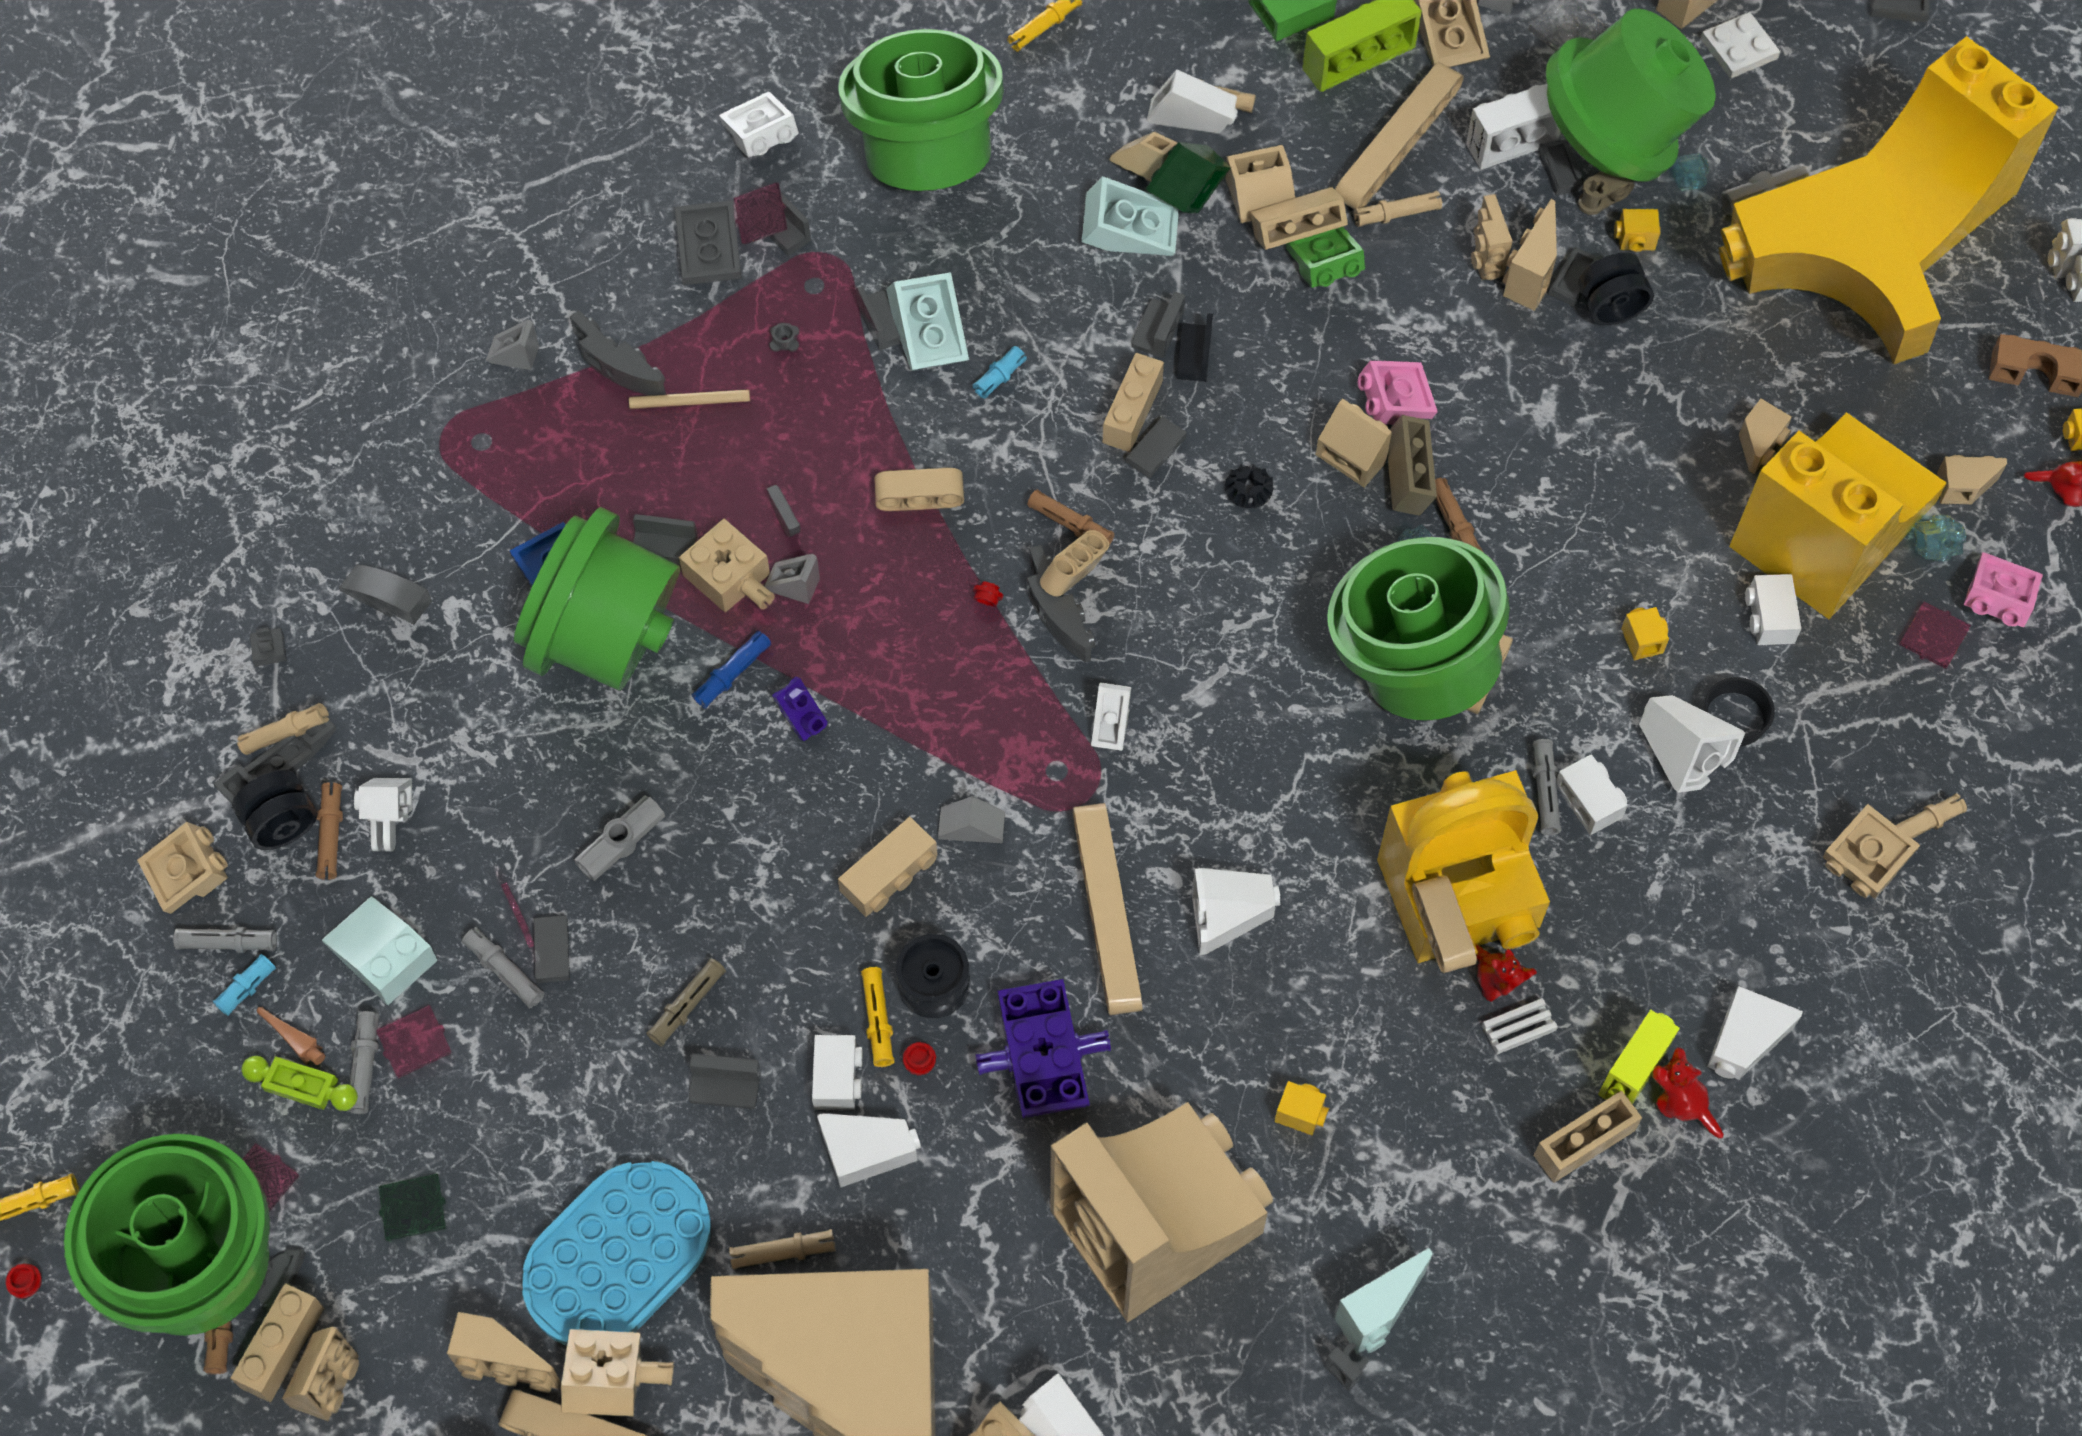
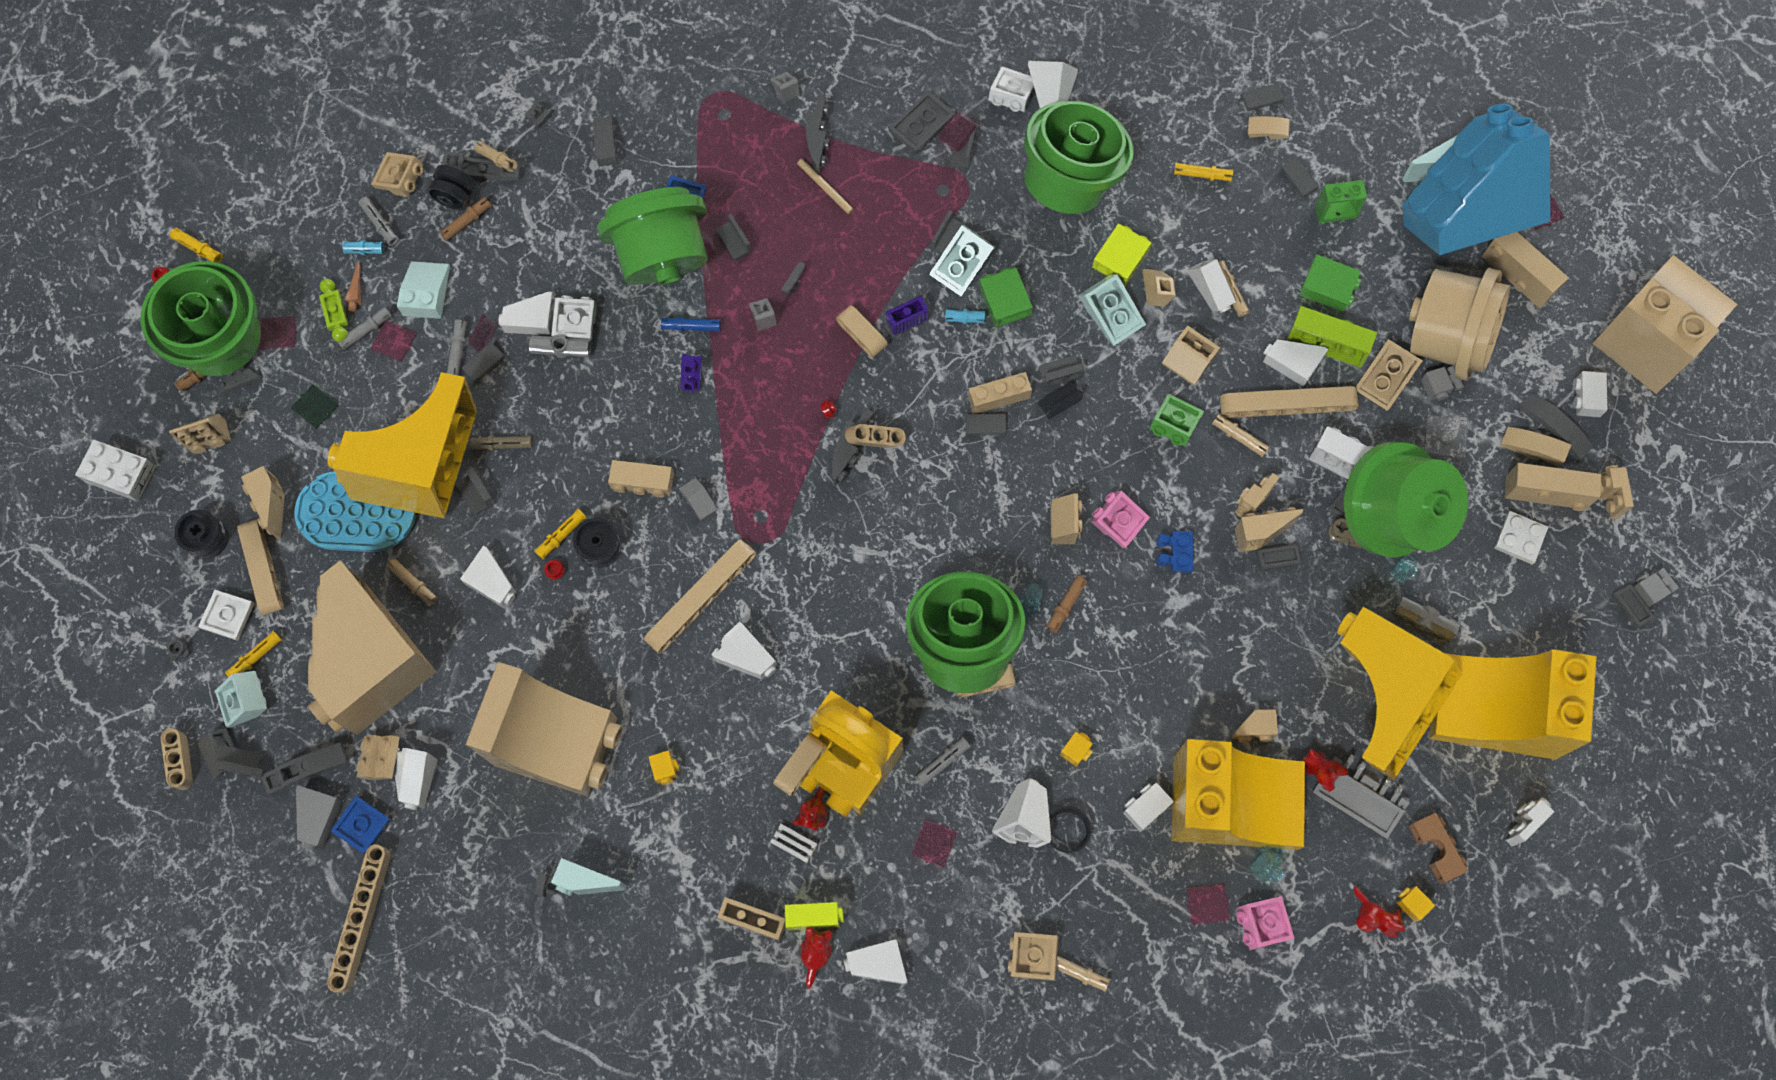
camera: 55 degrees right, 10 degrees up
(277, 1343) = (206, 402): tan brick -> none
(384, 803) = (491, 231): white brick -> none
(543, 846) = (529, 315): none -> white slope
(596, 792) = (574, 317): none -> white plate
(605, 1372) = (290, 551): tan brick -> none
(638, 1114) = (413, 461): none -> yellow brick
(727, 567) = (745, 287): tan brick -> none
(784, 330) = (897, 195): dark grey plate -> none
(795, 79) = (1052, 81): none -> white slope
(835, 1072) = (516, 537): white brick -> none
(946, 425) = (907, 315): none -> dark purple brick
(1015, 313) = (1005, 297): none -> bright green brick
(1037, 1021) = (584, 638): dark purple slope -> none
(1065, 516) = (907, 423): medium nougat pin -> none
(1070, 163) = (1122, 253): none -> neon yellow brick
(1111, 716) = (806, 519): white slope -> none
(1188, 176) = (1158, 316): dark green slope -> none
(1257, 495) = (998, 495): black gear -> none
(1299, 218) = (1185, 390): tan brick -> none
(1354, 95) = (1294, 359): none -> white slope
(1411, 465) = (1077, 557): dark tan brick -> none
(1488, 363) = (1181, 551): none -> blue plate
(1591, 794) = (954, 788): white brick -> none
(1616, 289) = (1281, 584): black wheel -> none
(1638, 229) = (1337, 569): yellow brick -> none
(1641, 870) = (934, 843): none -> clear pink piece
(1872, 400) = (1324, 769): none -> red animal
(1925, 395) = (1362, 802): none -> light grey hinge
(1968, 477) = (1323, 857): tan slope -> none

